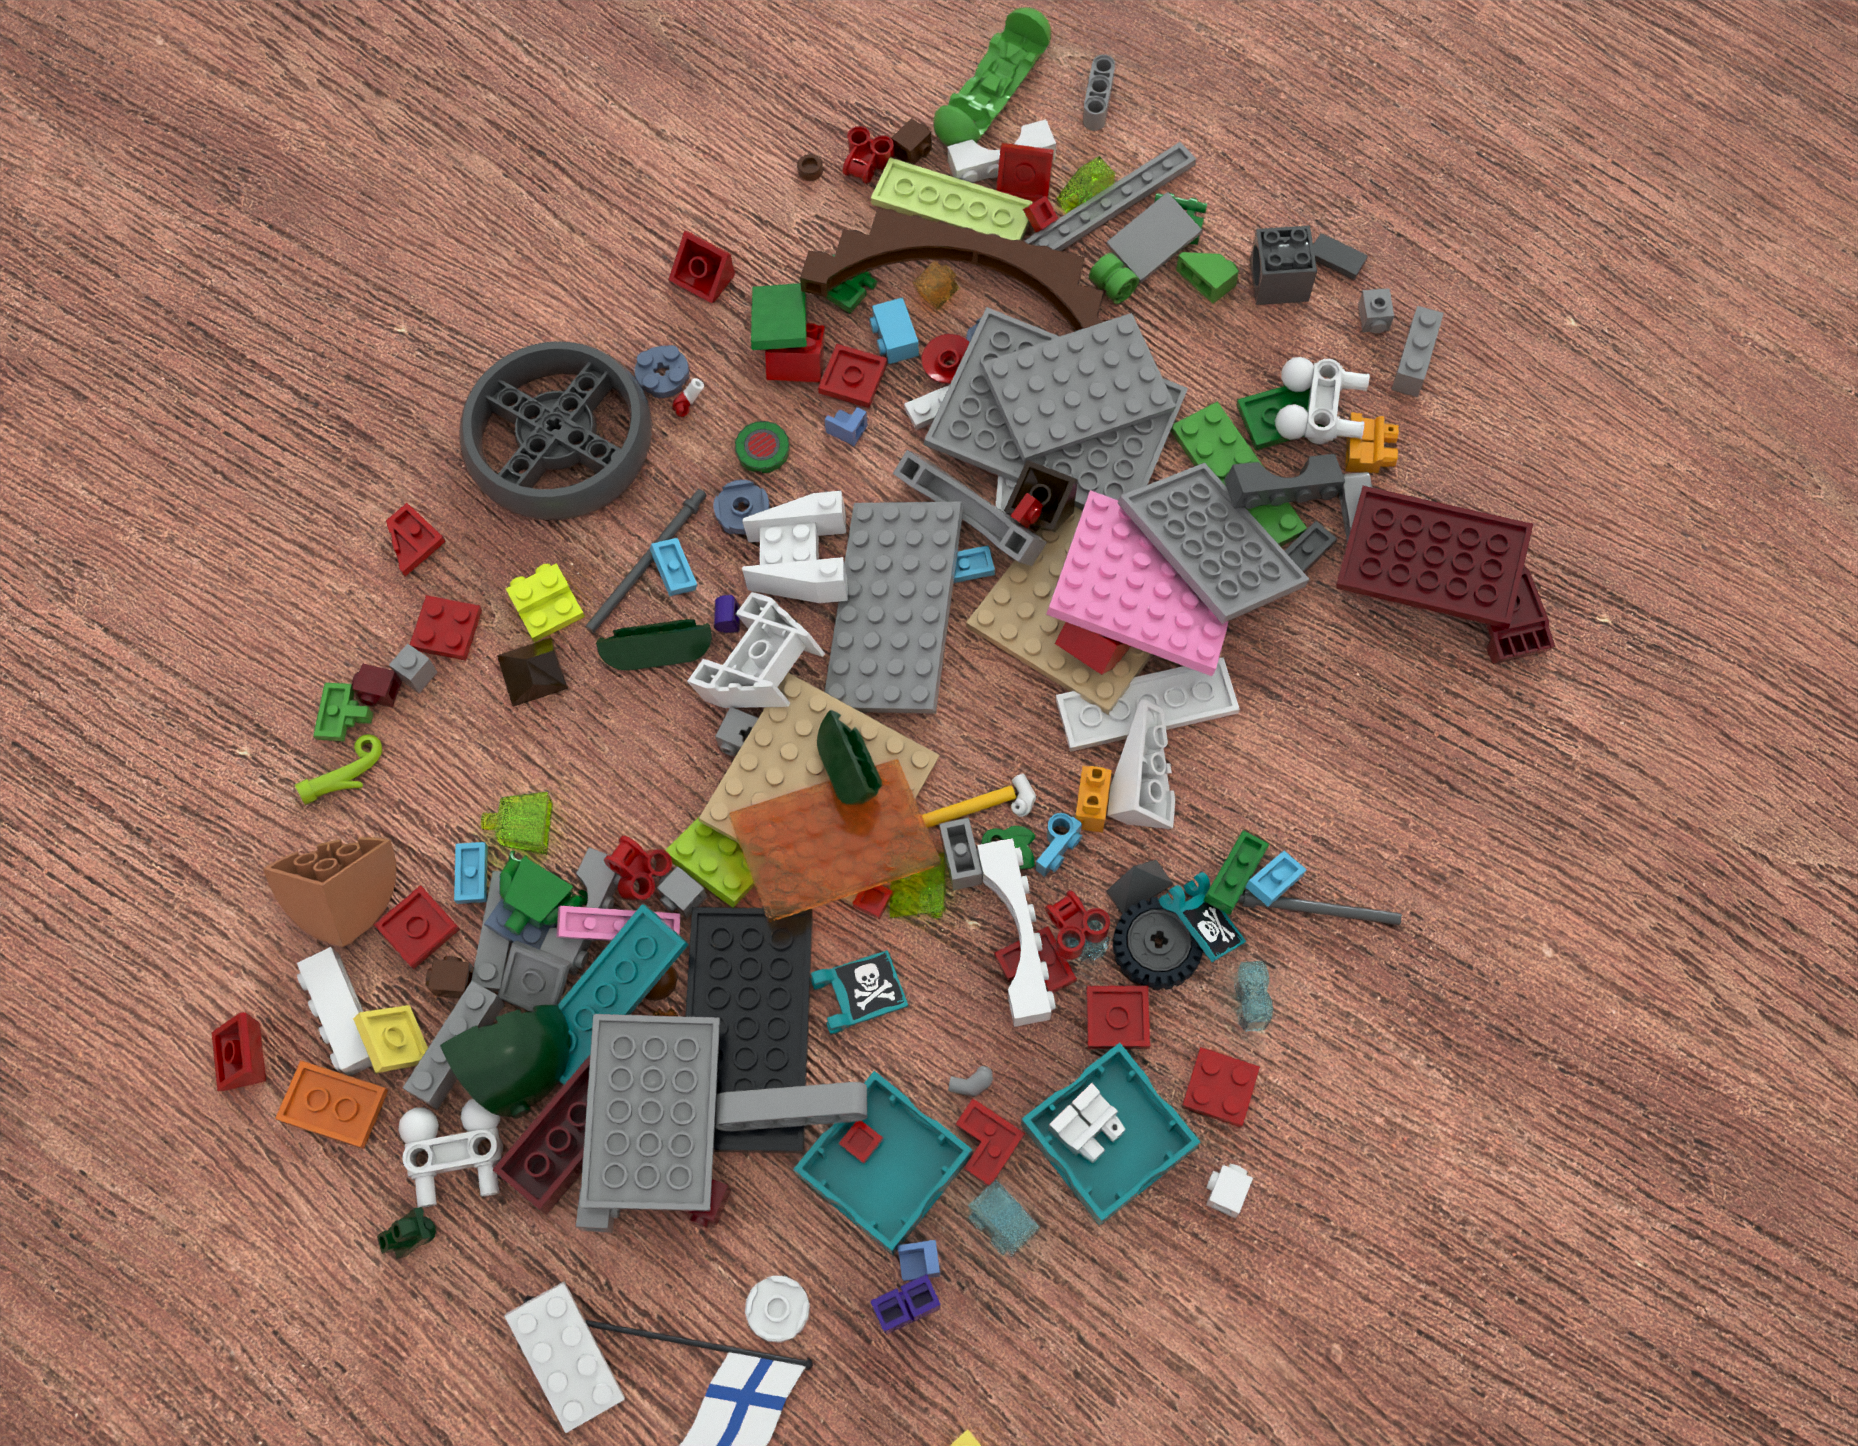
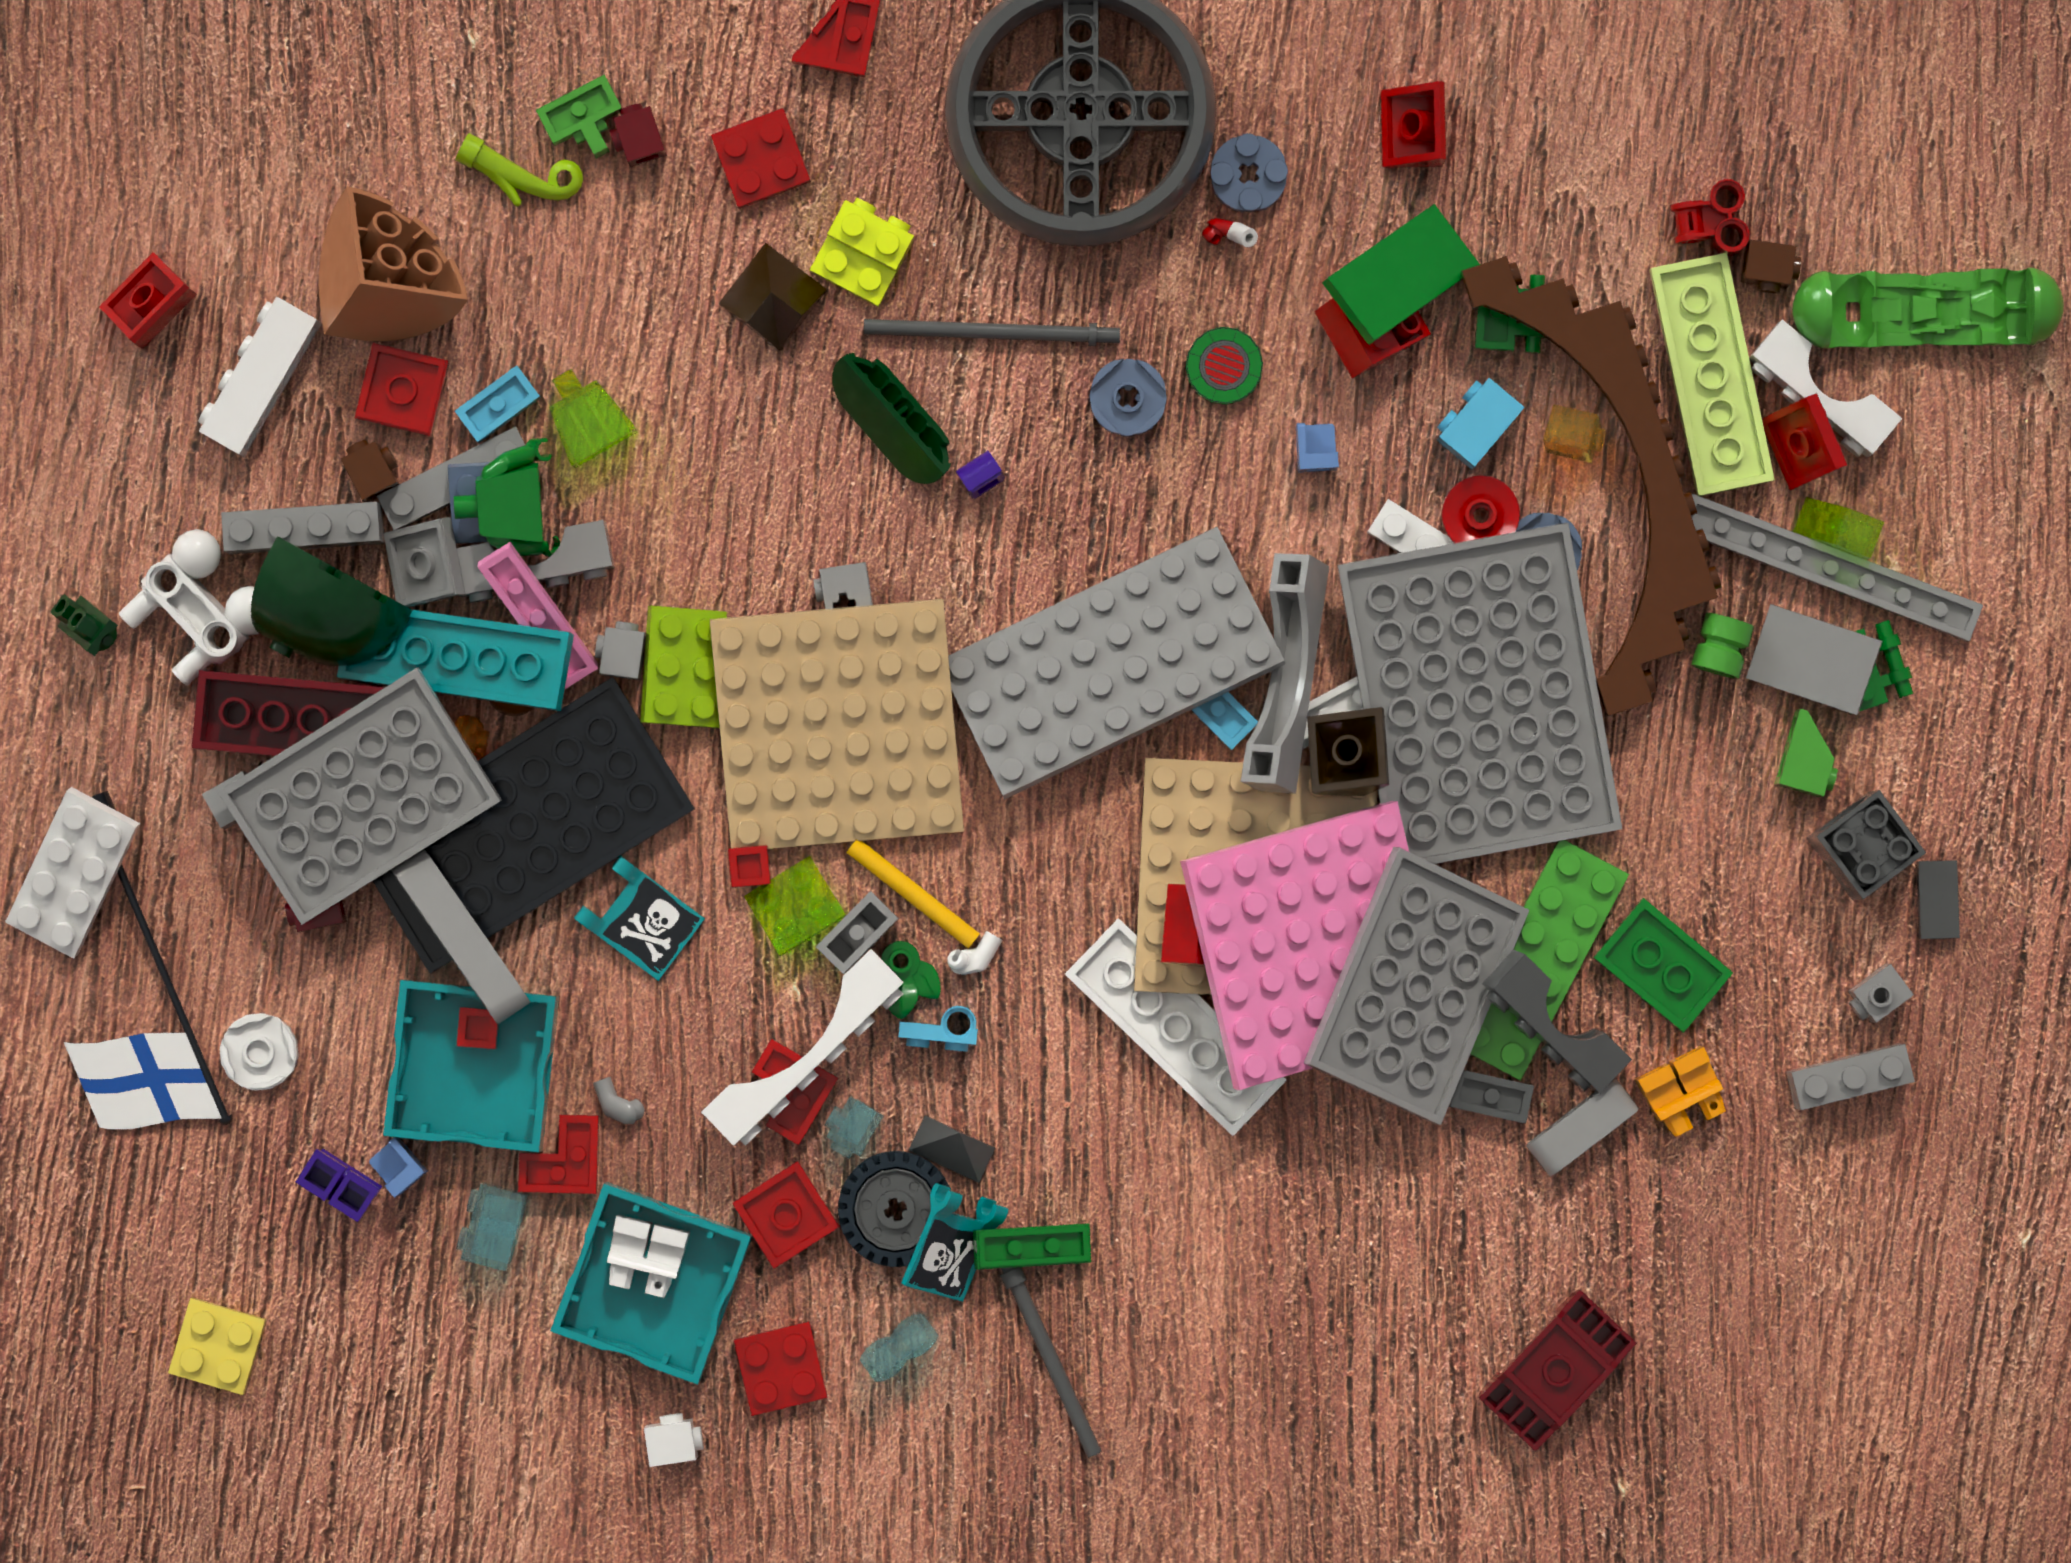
camera: 50 degrees right, 20 degrees up
(331, 1104) = (162, 442): orange plate -> none
(391, 1038) = (266, 459): light yellow plate -> none
(413, 668) = (684, 163): light grey brick -> none
(635, 864) = (612, 588): red piece -> none
(673, 567) = (999, 371): medium azure plate -> none
(758, 660) = (940, 562): white wedge -> none
(791, 549) = (1105, 498): white wedge -> none
(810, 167) = (1656, 155): reddish brown tile -> none
(819, 850) = (779, 786): clear orange plate -> none
(847, 761) = (872, 746): dark green brick -> none
(852, 375) = (1386, 411): red plate -> none
(1027, 510) = (1312, 751): red plate -> none
(1040, 213) = (1757, 498): red plate -> none
(1072, 921) = (849, 1109): red piece -> none
(1077, 387) = (1528, 701): light grey plate -> none
(1093, 798) = (1018, 1036): light orange hips -> none
(1098, 92) = (2010, 441): light grey beam -> none
(1140, 783) = (1075, 1077): white wedge -> none
(1275, 878) = (1050, 1294): medium azure plate -> none
(1294, 421) = (1643, 989): white piece -> none
(1435, 556) = (1557, 1253): dark red plate -> none

